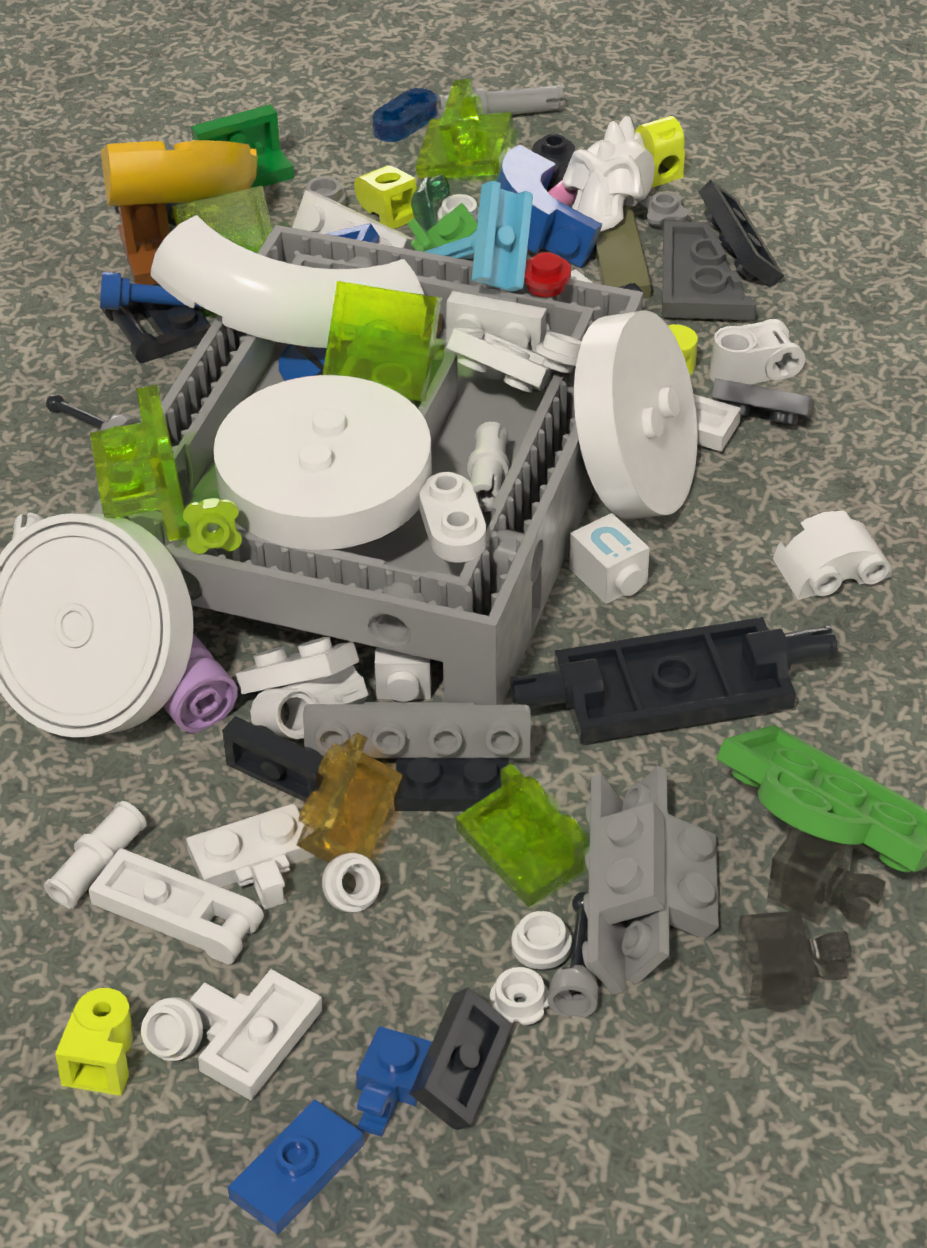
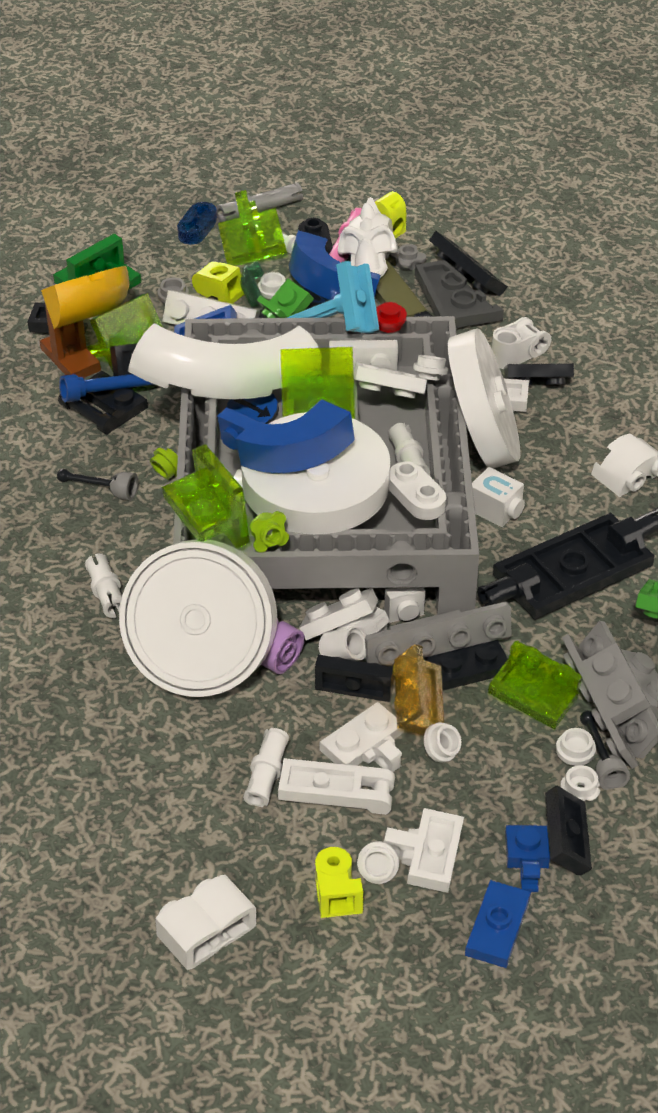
camera: 20 degrees left, 0 degrees up
(294, 412) = (289, 445): none -> blue arch

